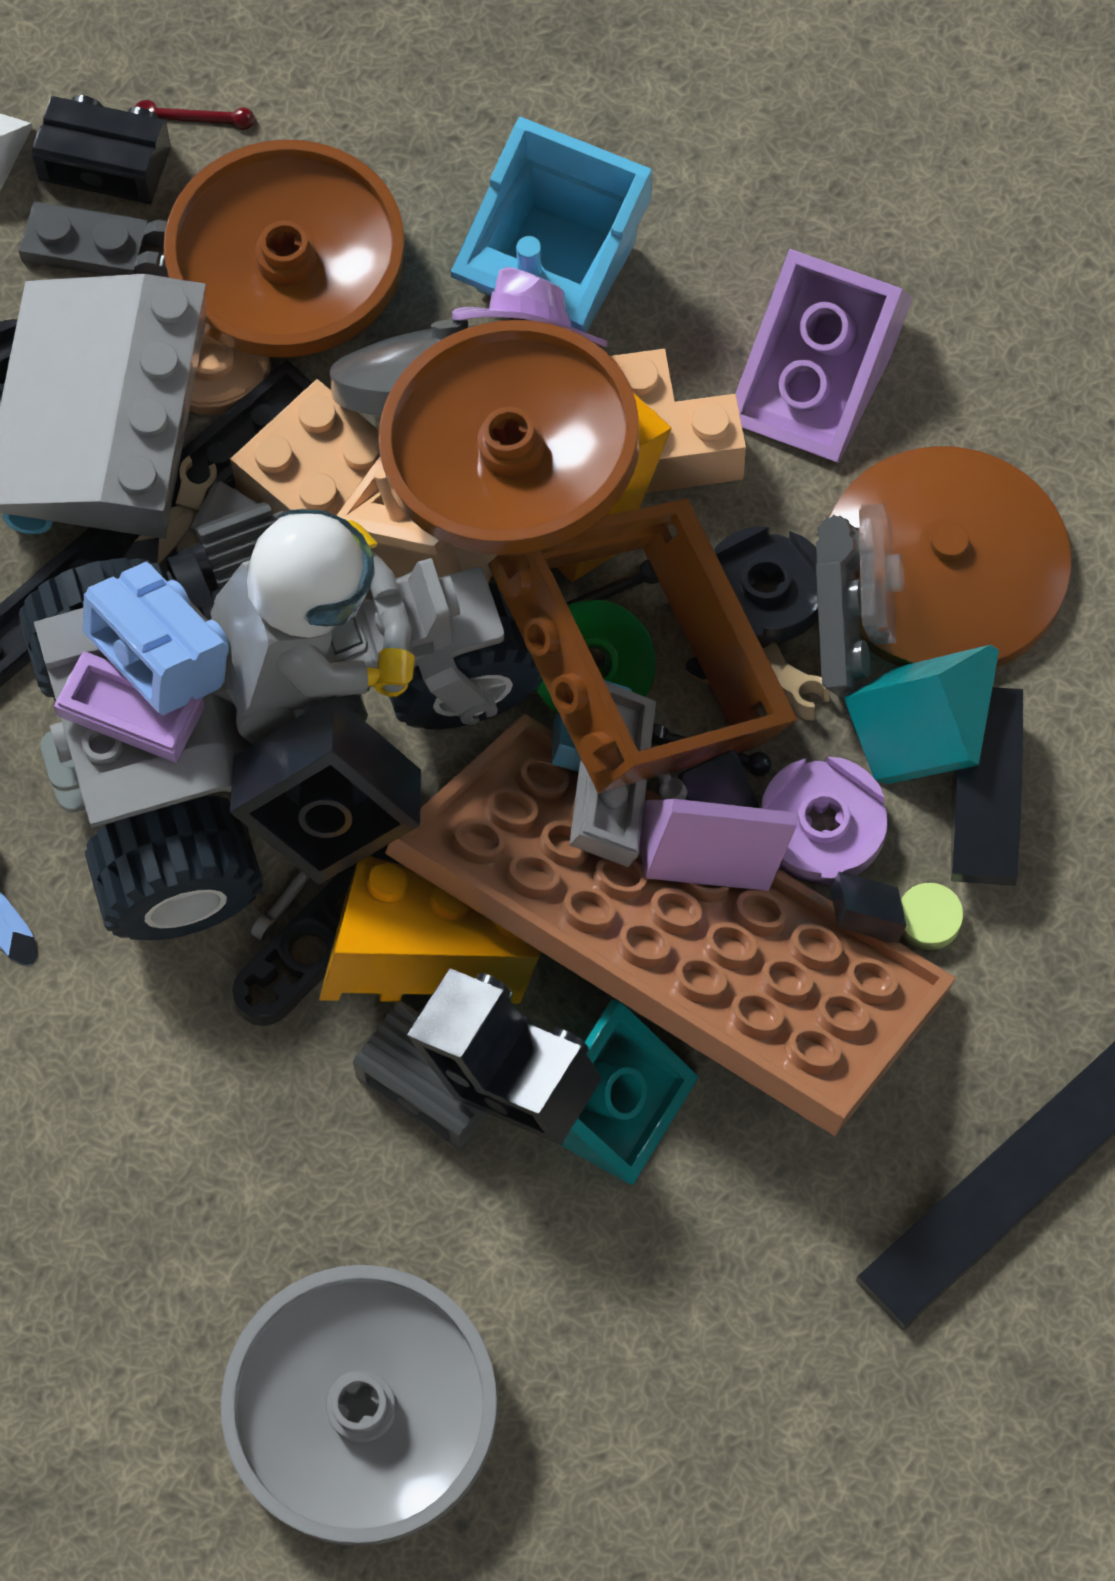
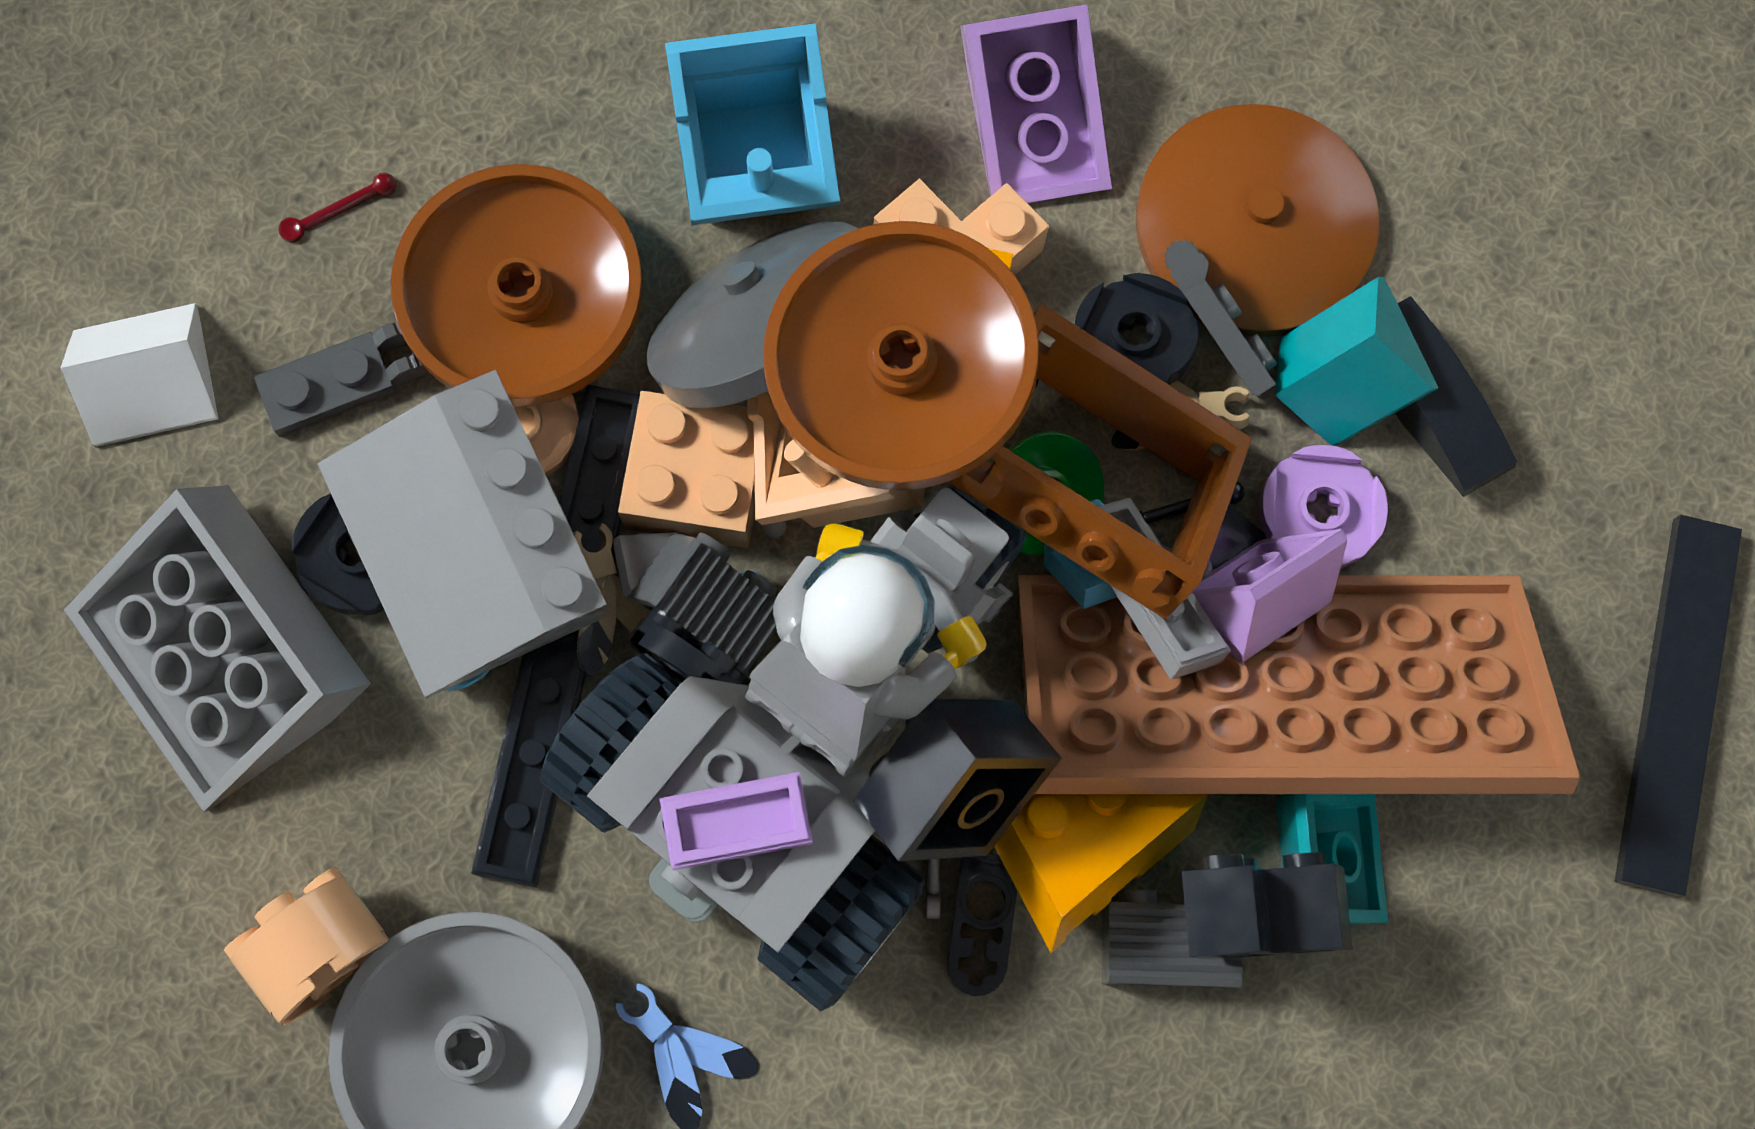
camera: 40 degrees left, 10 degrees up
(101, 148) = (280, 289): black brick -> none
(155, 637) = (725, 747): light blue brick -> none
(526, 297) = (789, 215): lavender hat -> none
(868, 907) = (1414, 562): black tile -> none
(879, 573) = (1236, 269): clear plate -> none
(931, 916) = (1458, 535): yellowish green tile -> none

